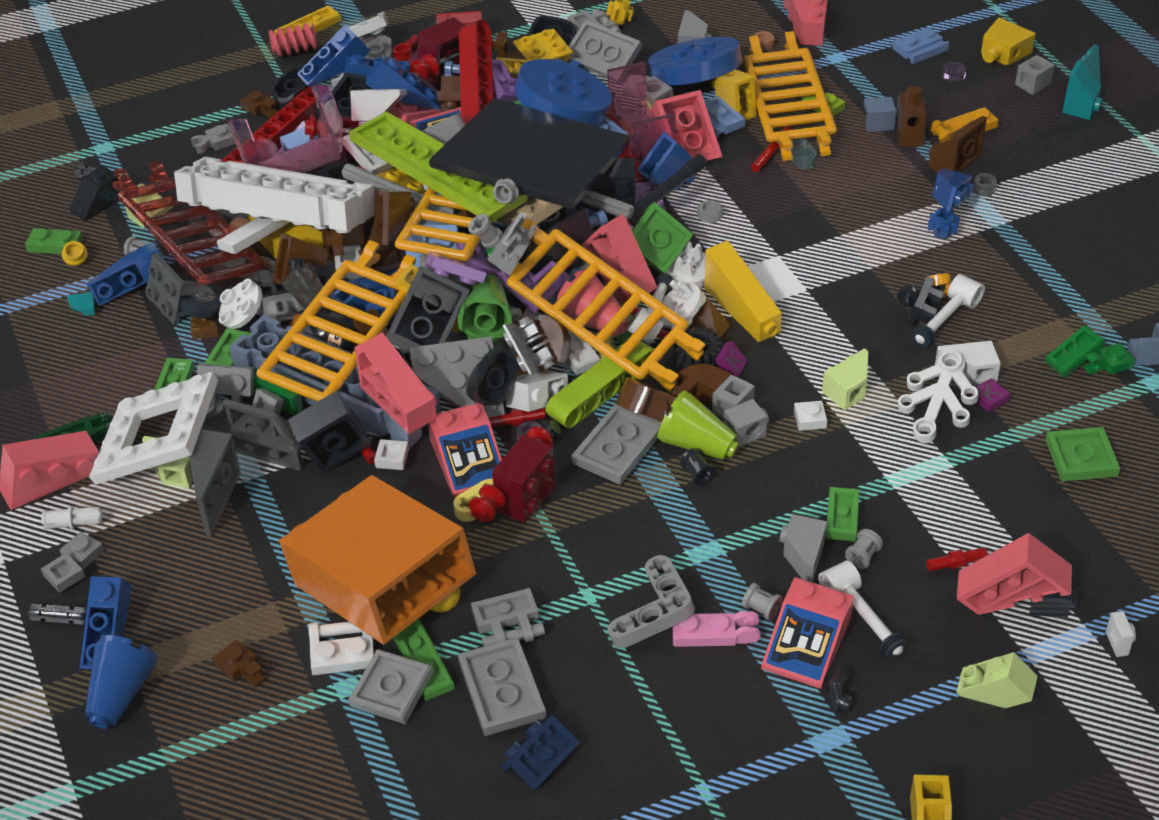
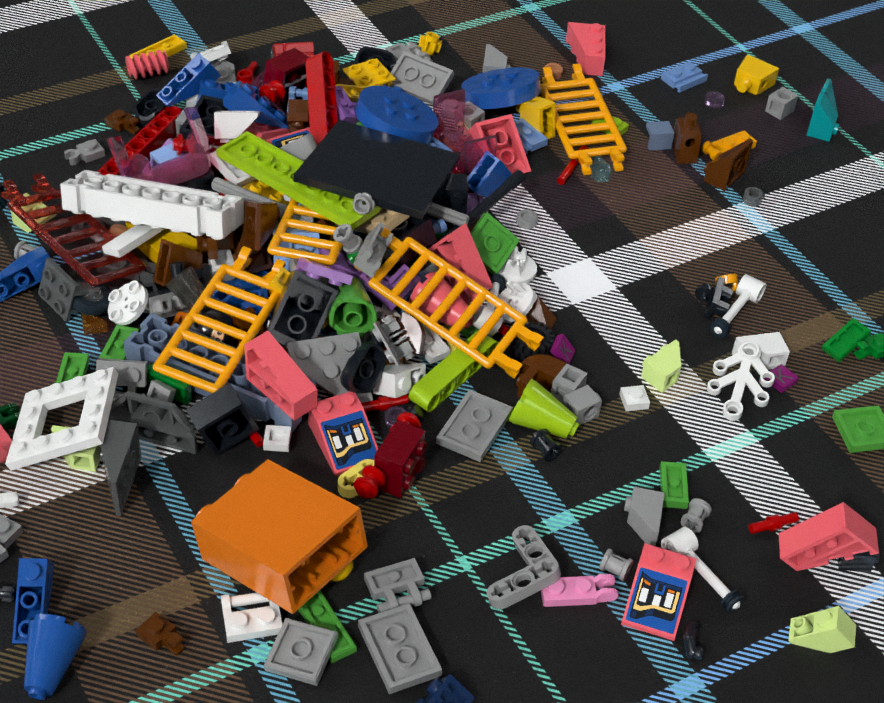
camera: 10 degrees left, 0 degrees up
(644, 399) = (496, 386): reddish brown brick -> none
(740, 292) = (564, 290): yellow slope -> none
(943, 223) = (724, 229): blue gear -> none
(952, 188) = (728, 200): blue slope -> none

